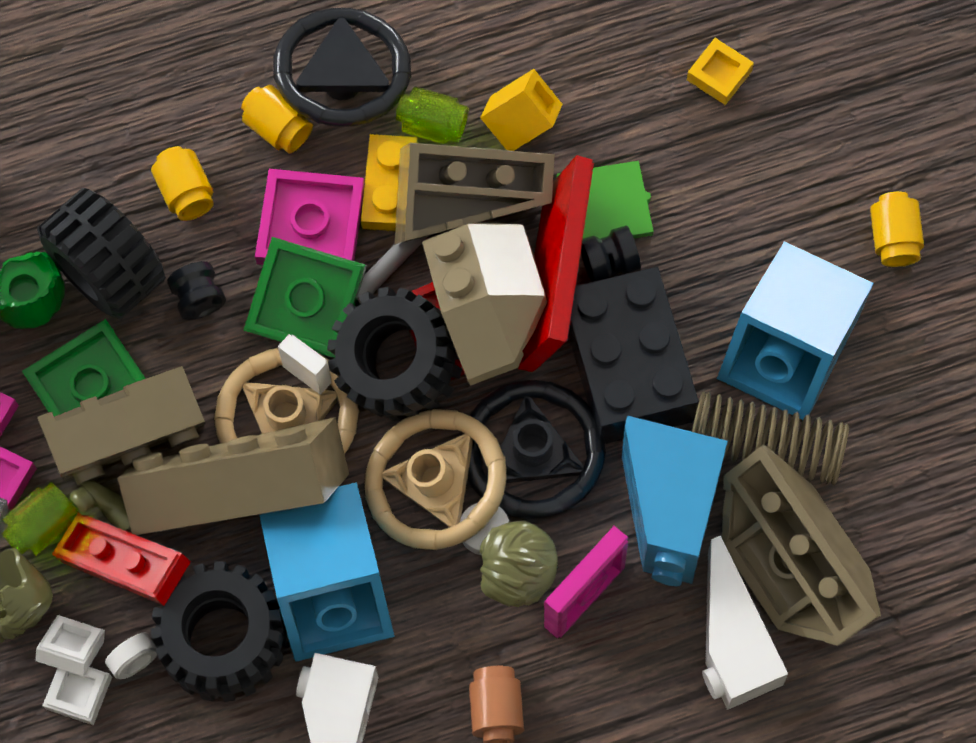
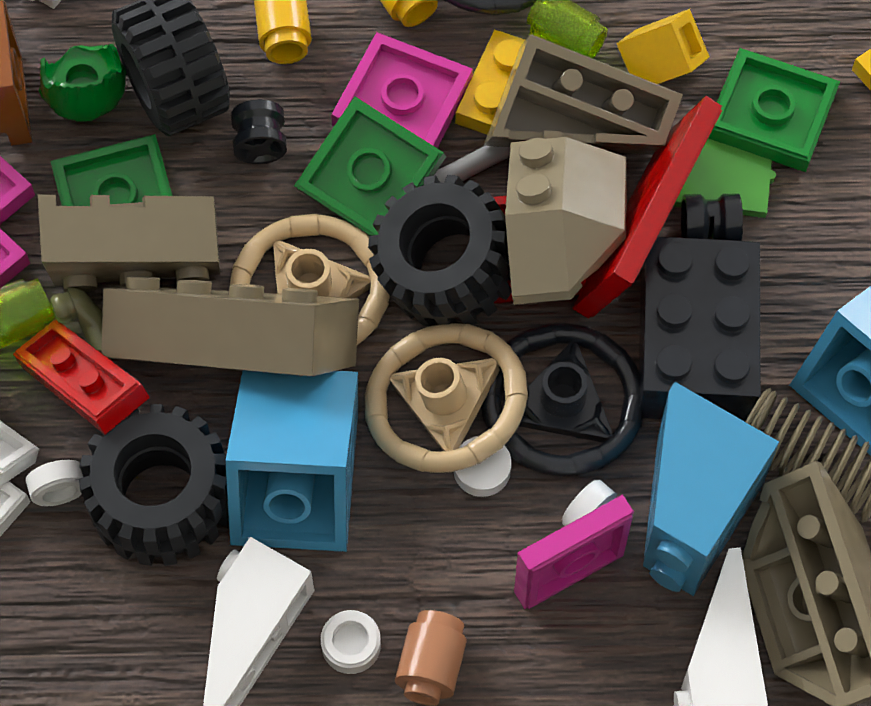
camera: 15 degrees right, 5 degrees down
(305, 363) = (345, 234): white tile -> none
(424, 712) = (350, 642): none -> white tile
(517, 563) = (504, 510): olive hair -> none
(584, 537) = (589, 499): none -> white tile
(631, 135) = (773, 109): none -> green tile

